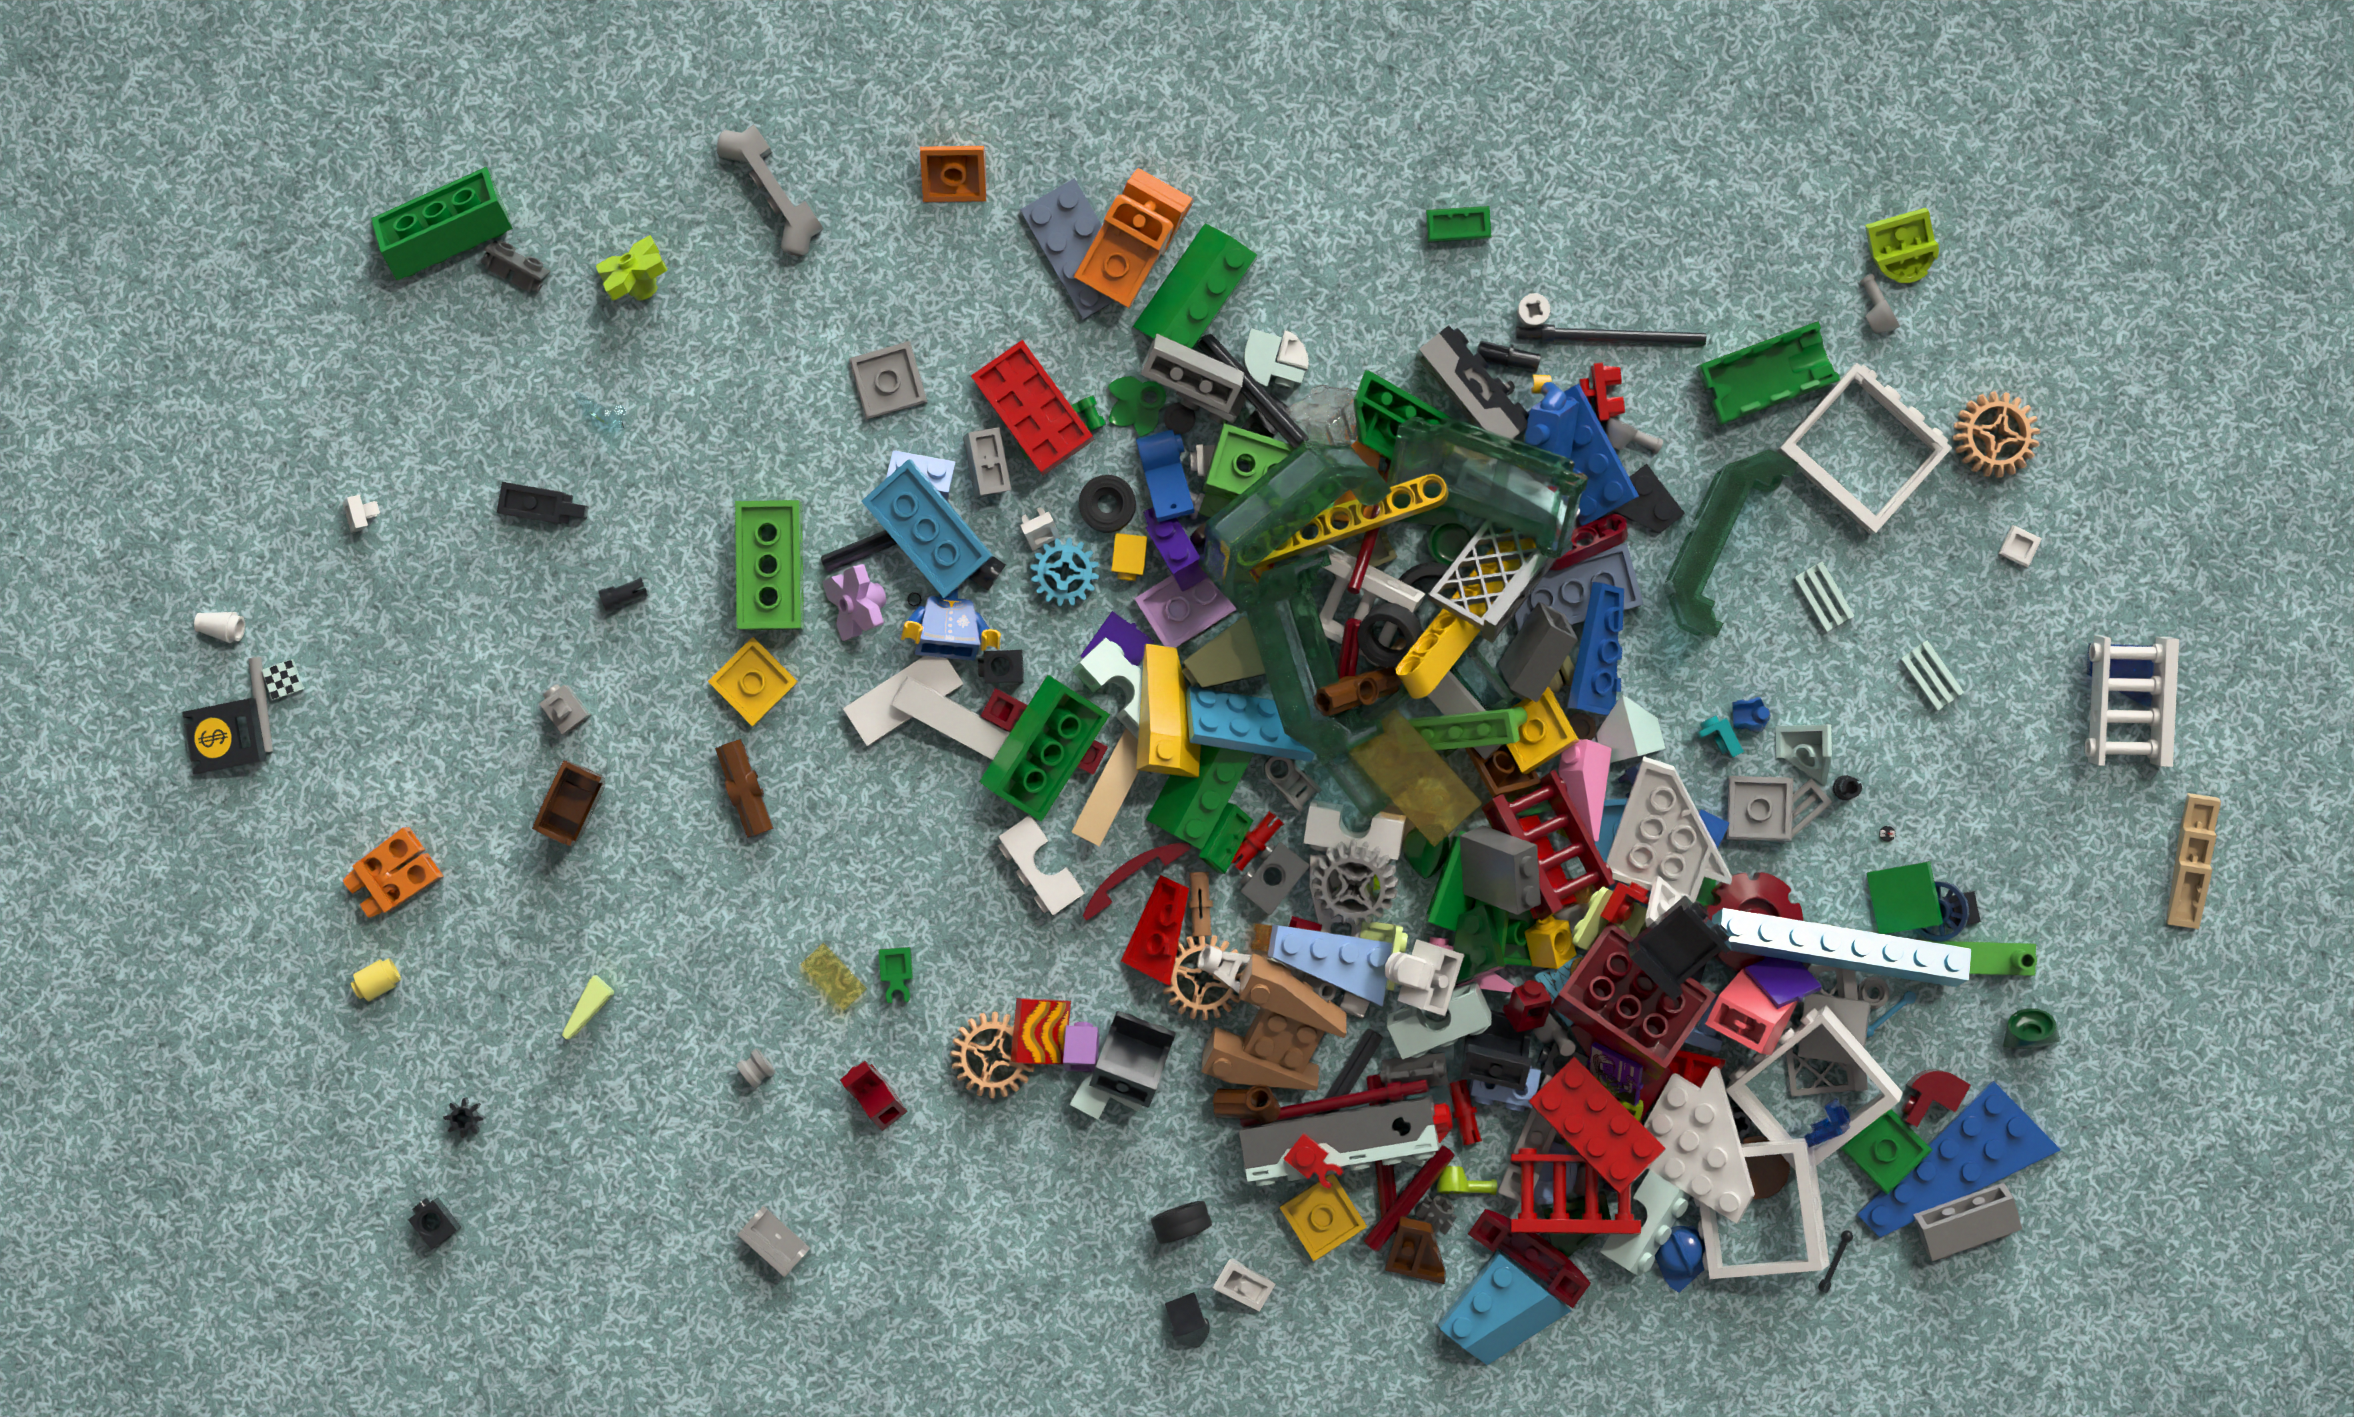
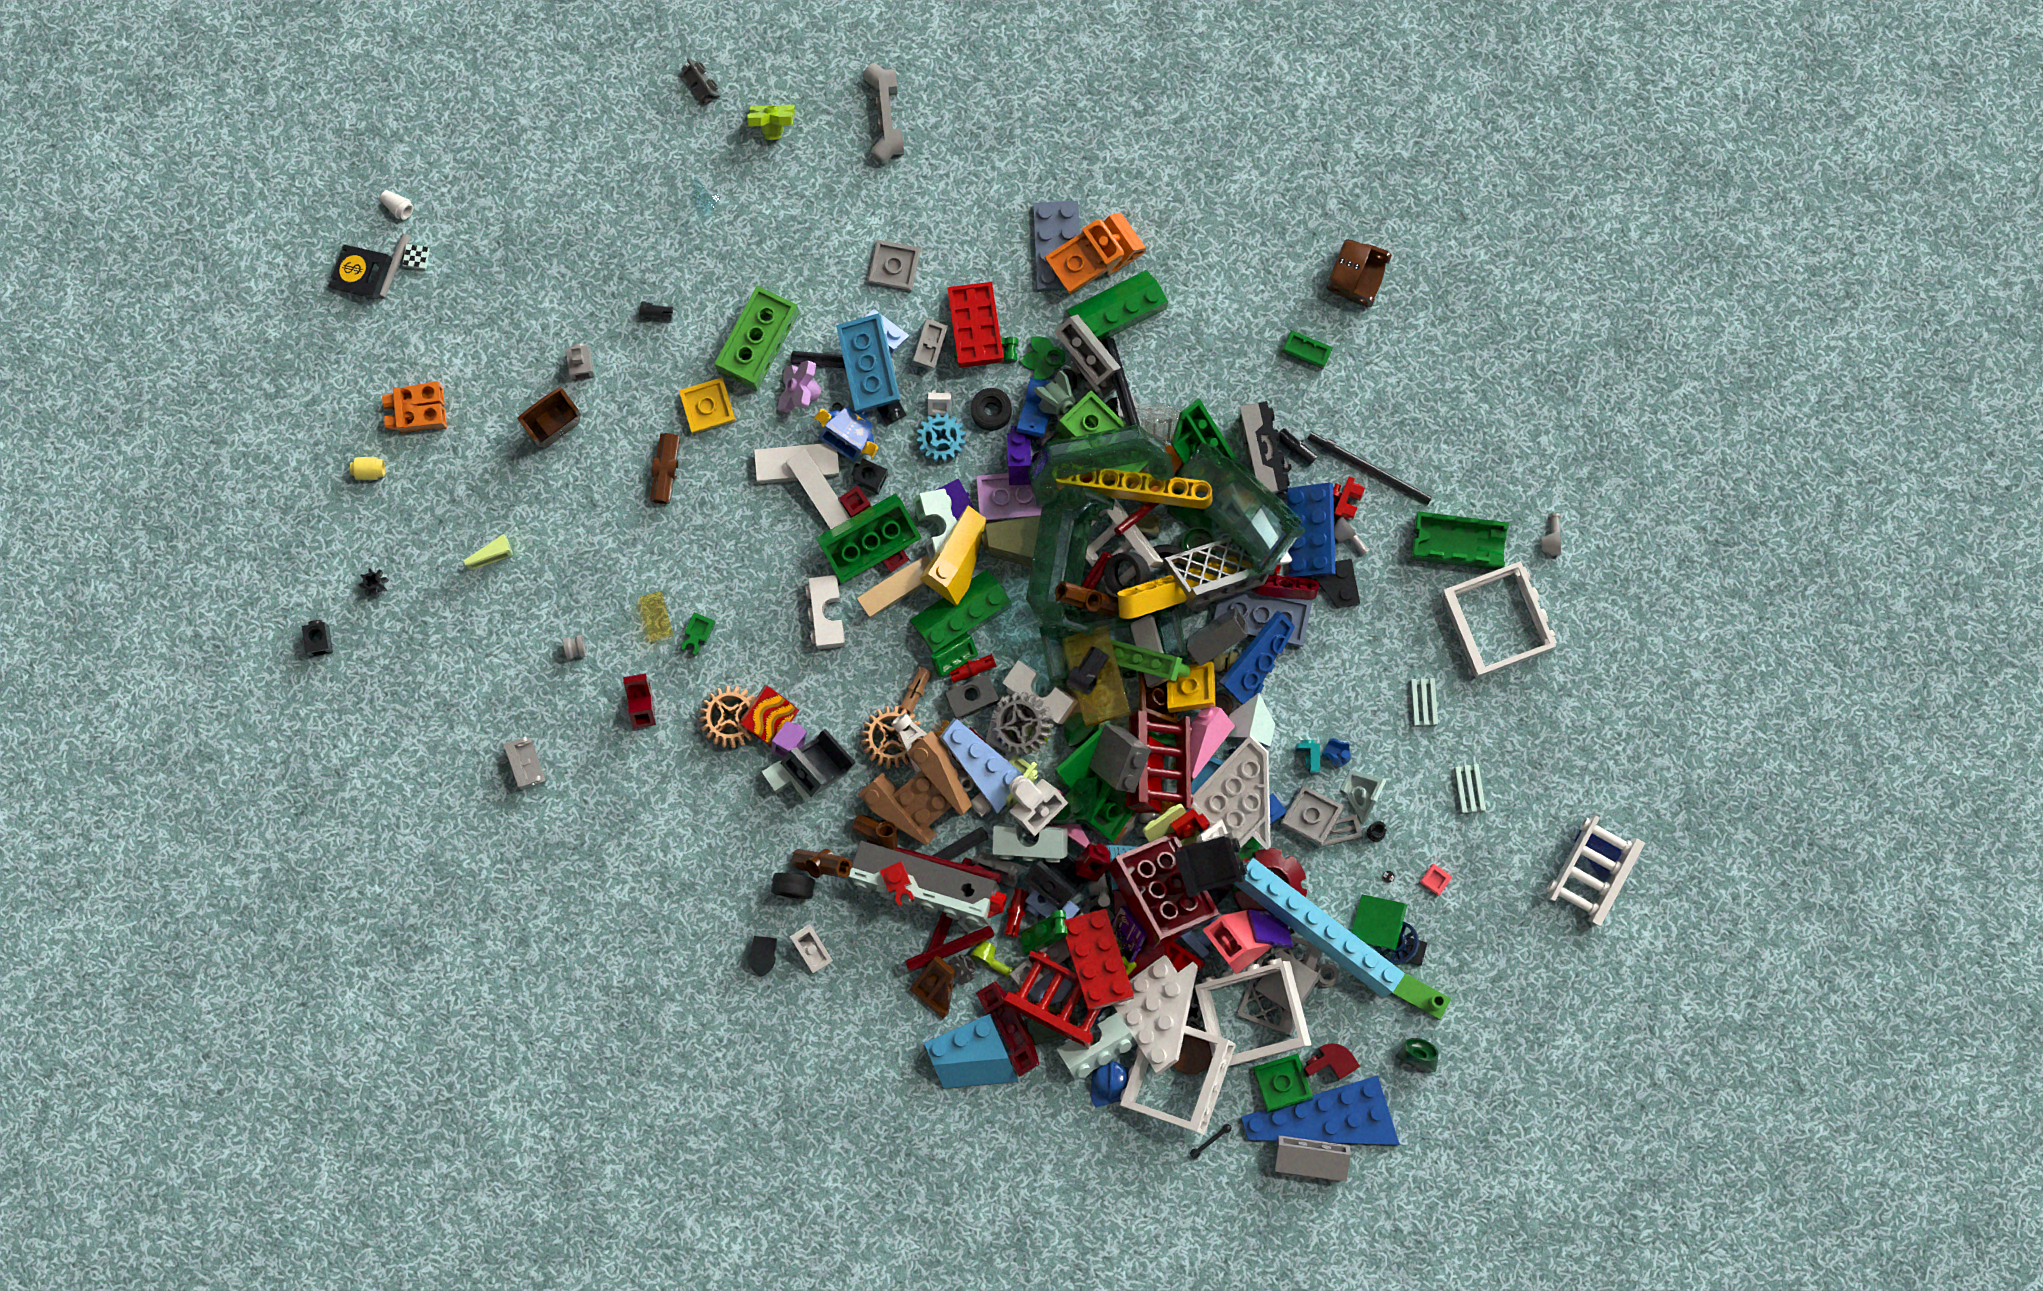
camera: 30 degrees right, 10 degrees down
(358, 513) = (520, 179): white tile -> none
(441, 224) = (669, 34): green slope -> none
(538, 504) = (634, 230): black hinge -> none
(953, 173) = (1003, 159): orange slope -> none
(1101, 899) = (852, 653): dark red slope -> none
(1129, 556) = (987, 448): yellow brick -> none
(1158, 931) = (878, 692): red wing -> none
(1184, 451) = (1056, 395): none -> sand green brick
(1203, 1179) = (821, 863): none -> reddish brown piece
(1240, 724) = (1001, 585): dark azure plate -> none
(1261, 364) = (1136, 371): light aqua brick -> none
(1292, 351) = (1159, 376): white tile -> none
(1292, 782) = (1016, 645): light grey piece -> none
(1323, 1217) = (887, 932): yellow plate -> none
(1403, 788) = (1085, 675): none -> black piece
(1471, 92) = (1358, 272): none -> reddish brown piece
(1514, 1123) = (1044, 932): none -> green plate
(1529, 314) = (1327, 430): white wheel -> none
(1550, 943) = (1128, 828): yellow brick -> none
(1551, 420) = (1303, 494): blue torso -> none
(1710, 532) = (1421, 594): clear green windscreen -> none
(1824, 1129) = (1249, 1040): clear blue bracket -> none
(1903, 245) = (1589, 505): lime slope -> none
(1908, 997) = (1349, 991): dark azure hinge -> none
(1945, 808) = (1435, 879): none -> coral tile
(2019, 546) = (1570, 735): white tile -> none
(2023, 440) = (1598, 661): light nougat gear -> none
(2193, 861) = (1584, 998): tan slope -> none

